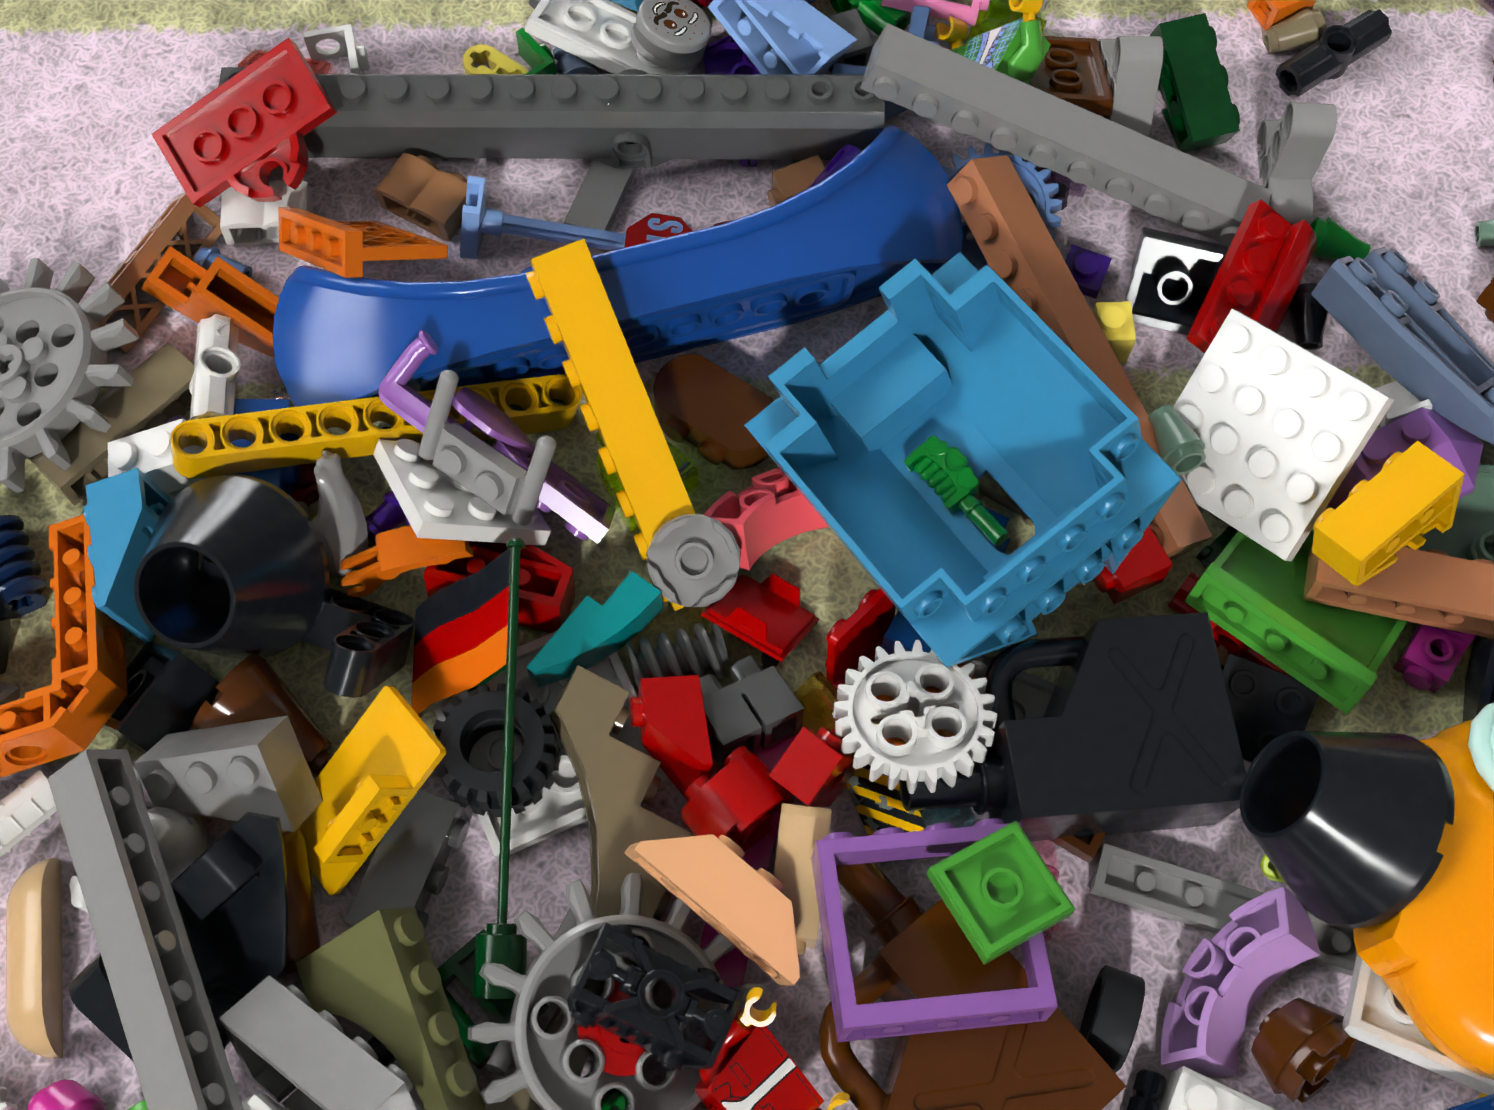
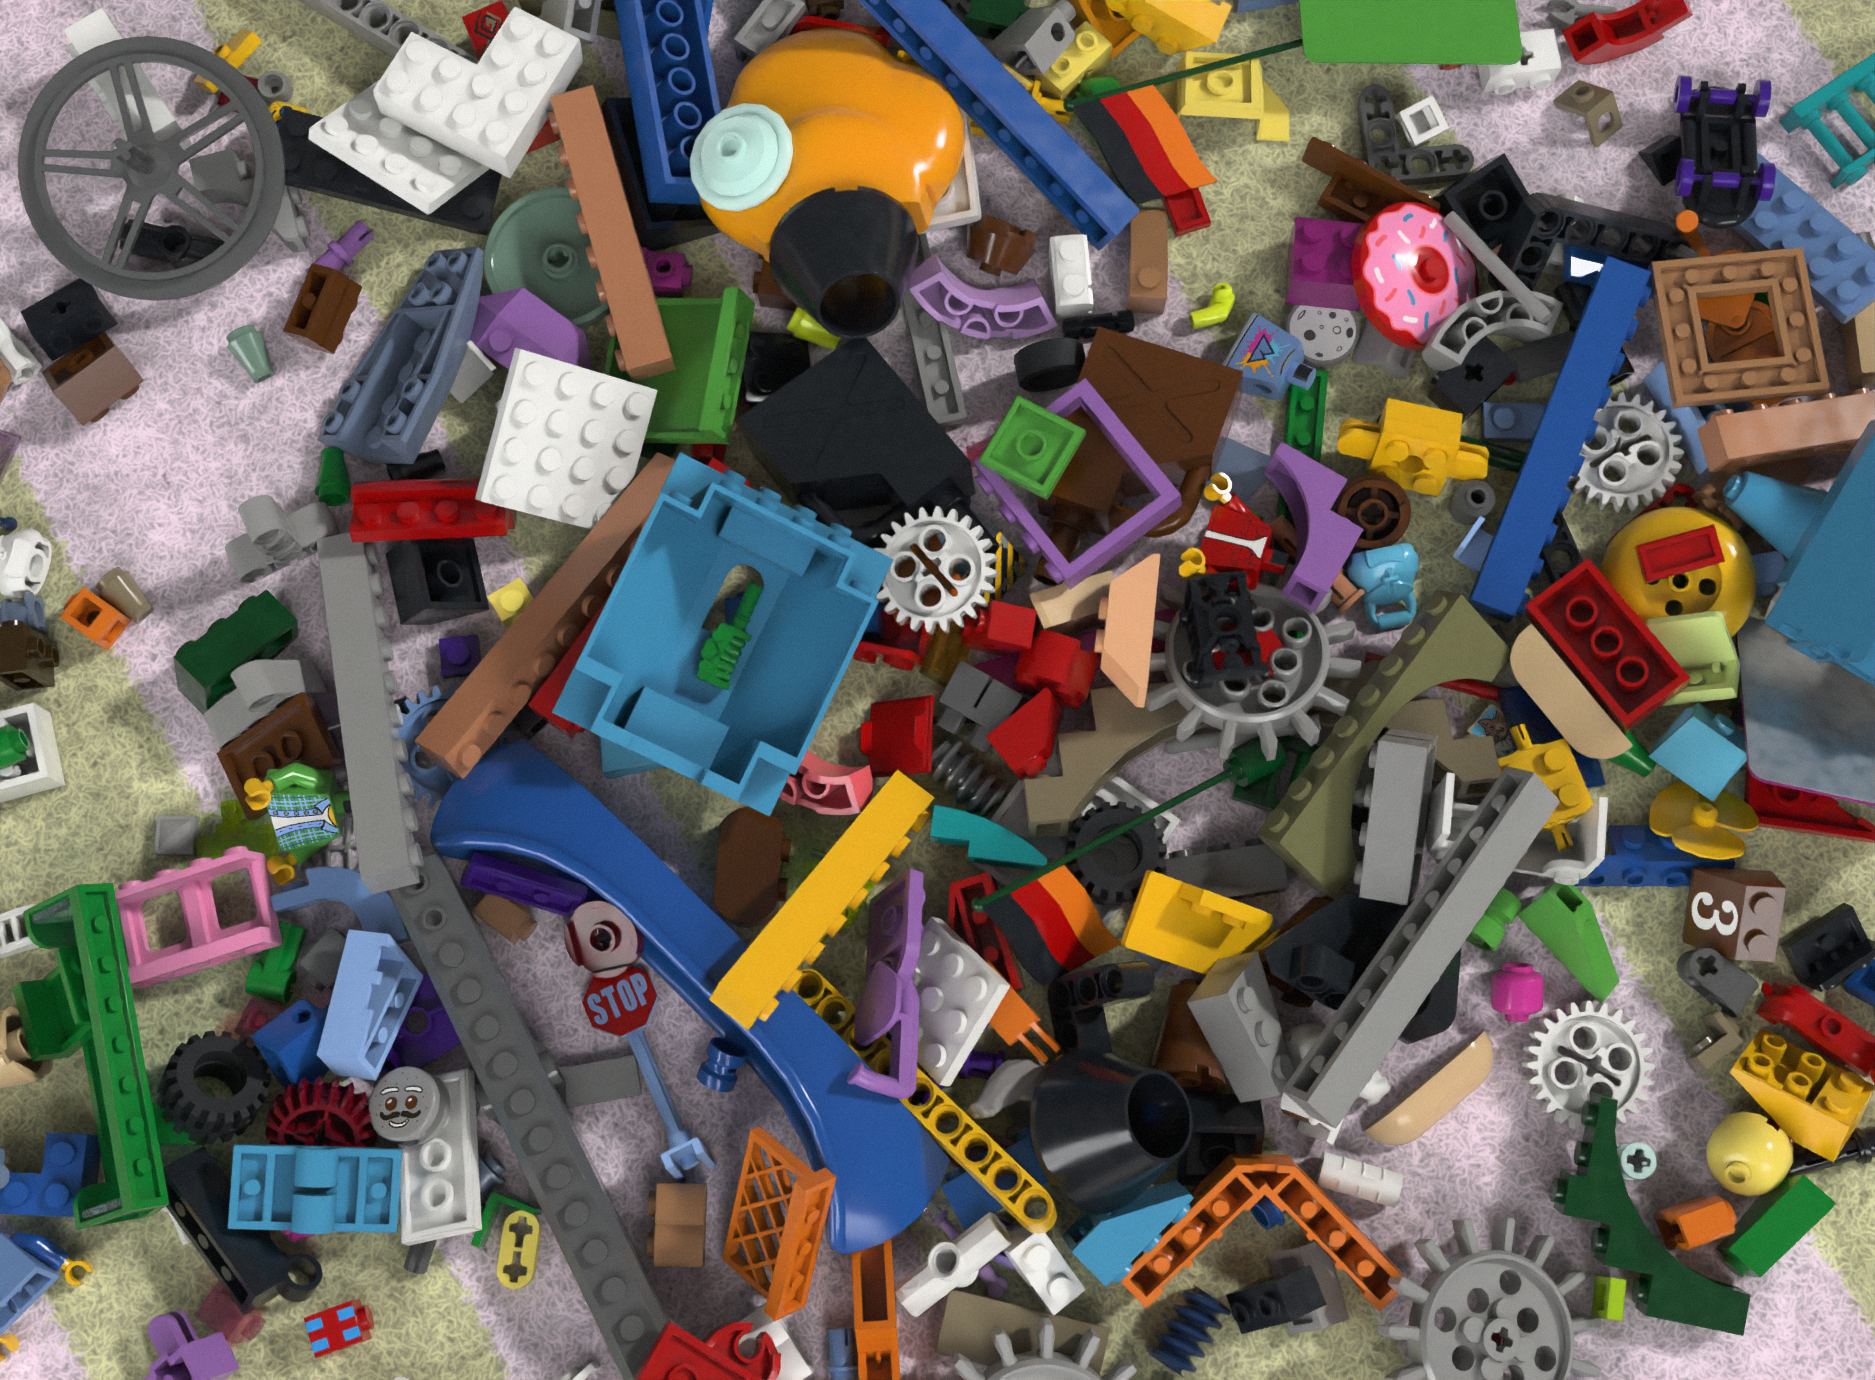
camera: 120 degrees left, 10 degrees up
(479, 465) = (924, 982): light grey plate -> none
(693, 560) = (895, 797): light grey tile -> none
(1176, 440) = (601, 504): sand green cone -> none
(1333, 52) = (116, 546): black piece -> none
(1387, 513) = (603, 324): yellow wedge -> none

